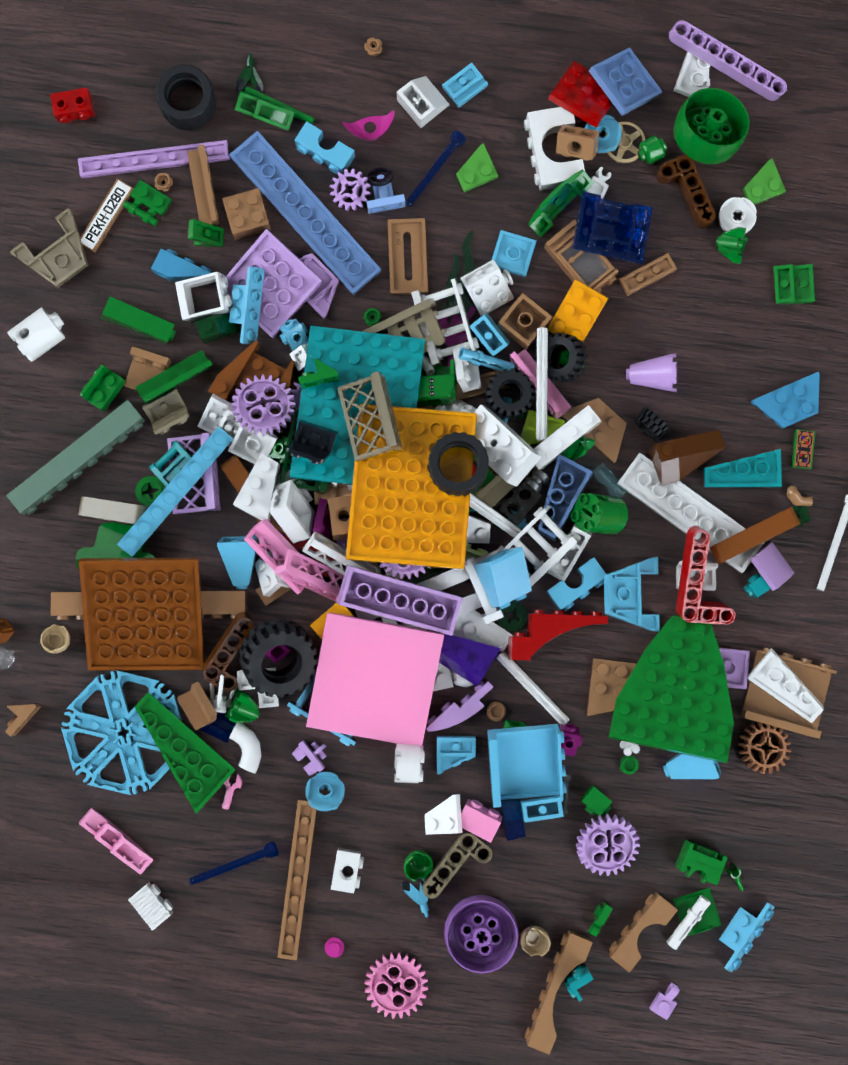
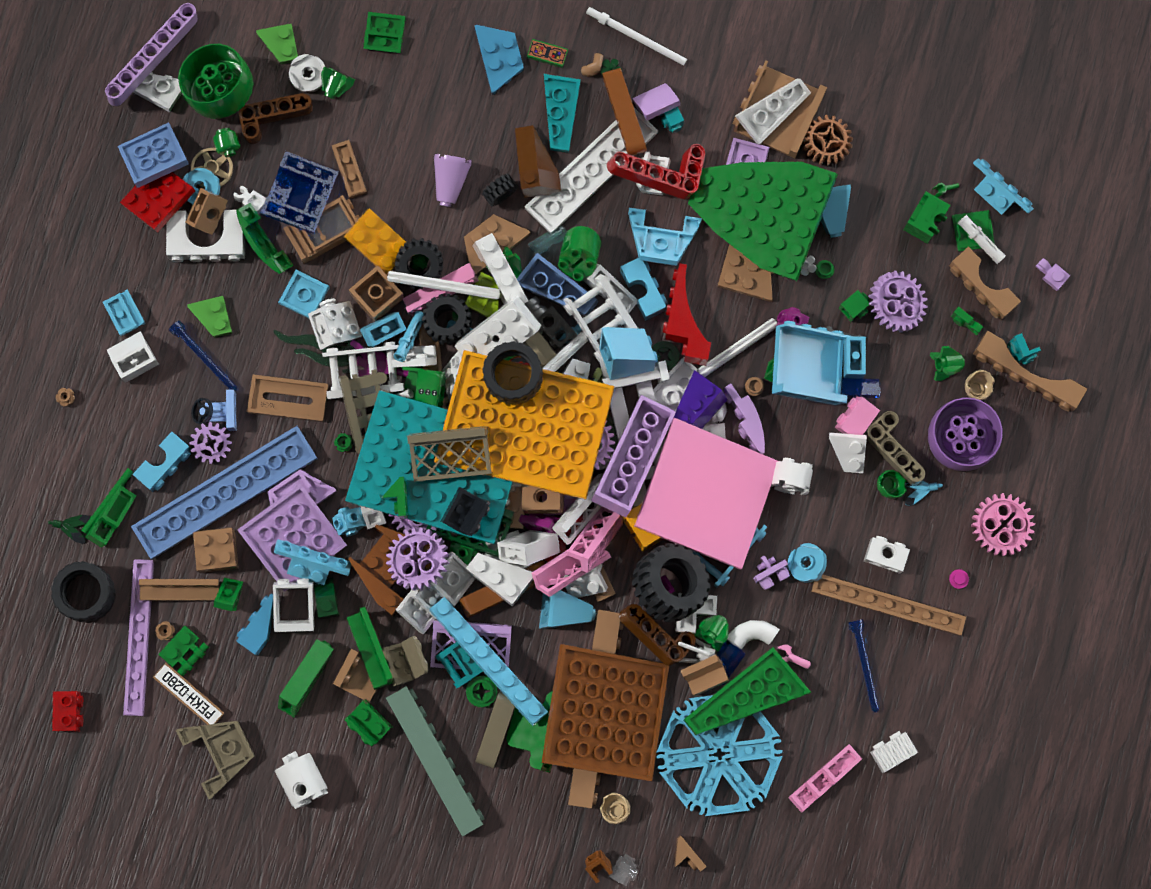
camera: 80 degrees left, 5 degrees down
(382, 124) = (150, 401): dark pink piece -> none
(454, 750) = (786, 433): medium azure wing -> none
(552, 904) = (947, 362): none -> green brick

